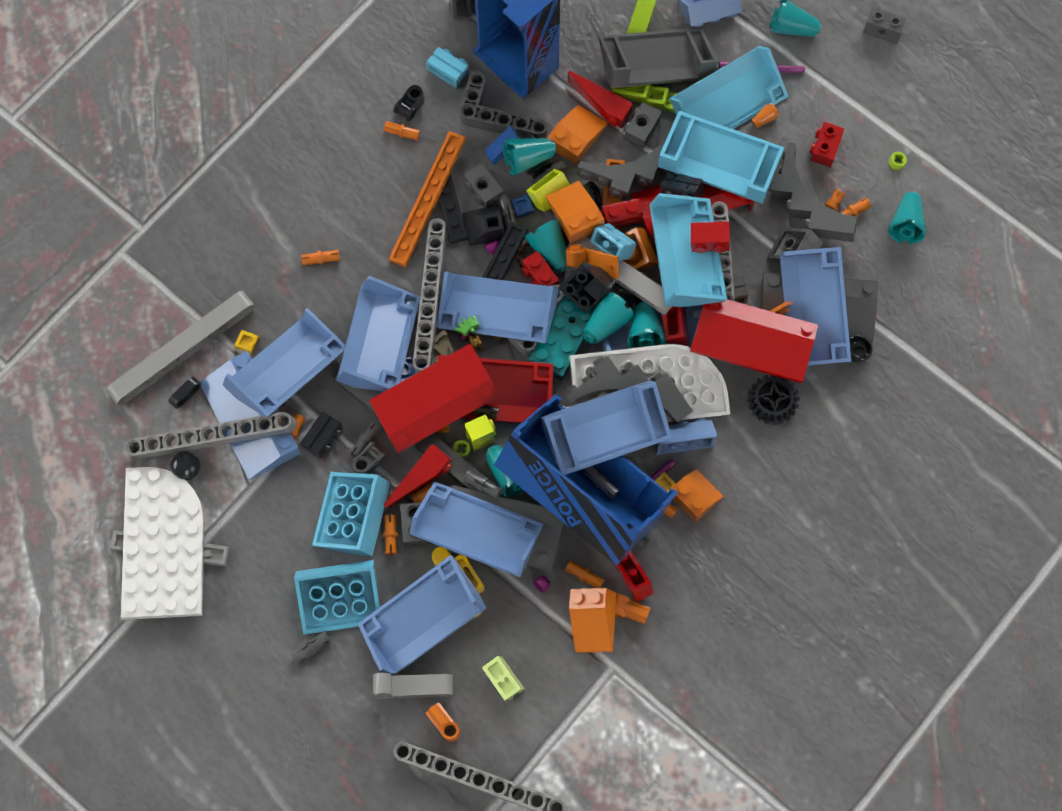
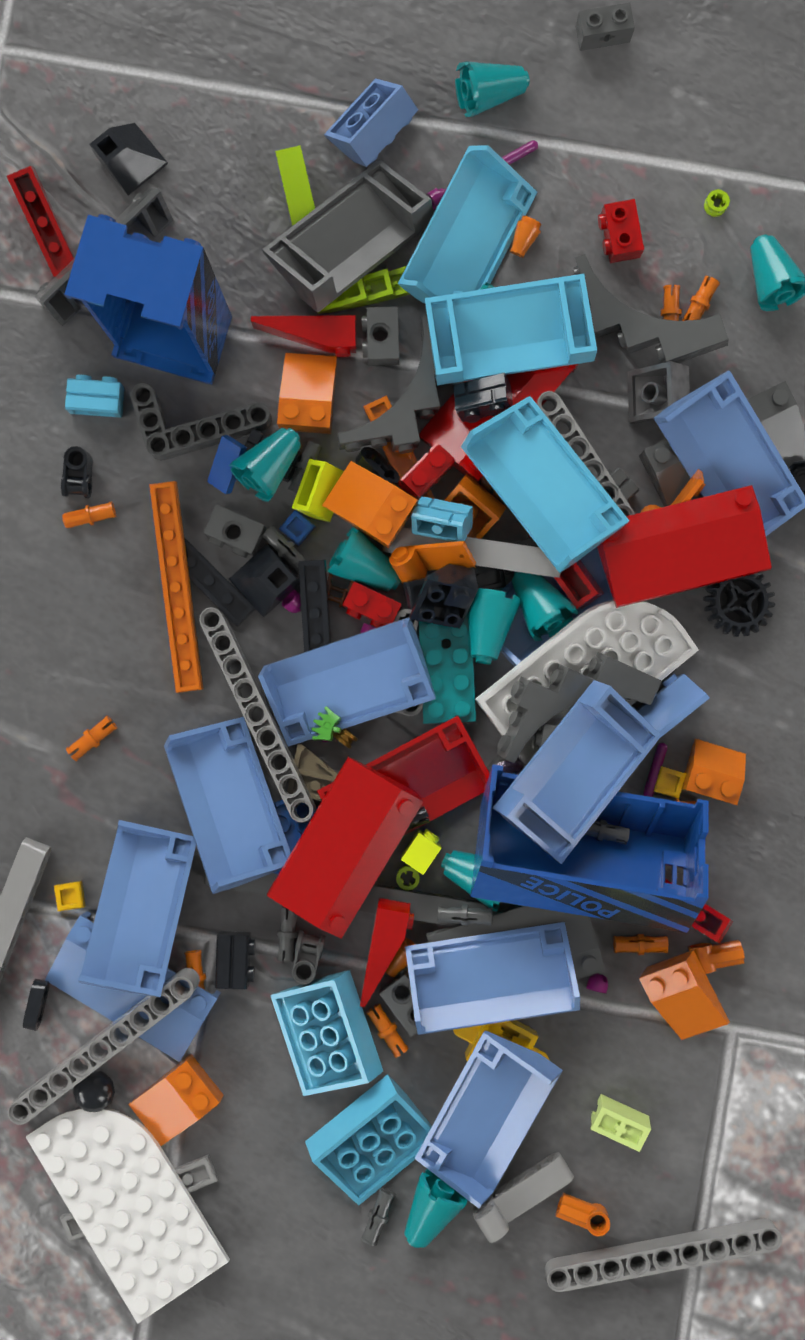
camera: 30 degrees left, 15 degrees up
(232, 500) = (176, 1100): none -> orange slope
(348, 659) = (432, 1209): none -> teal cone
(710, 237) = (564, 451): red piece -> none

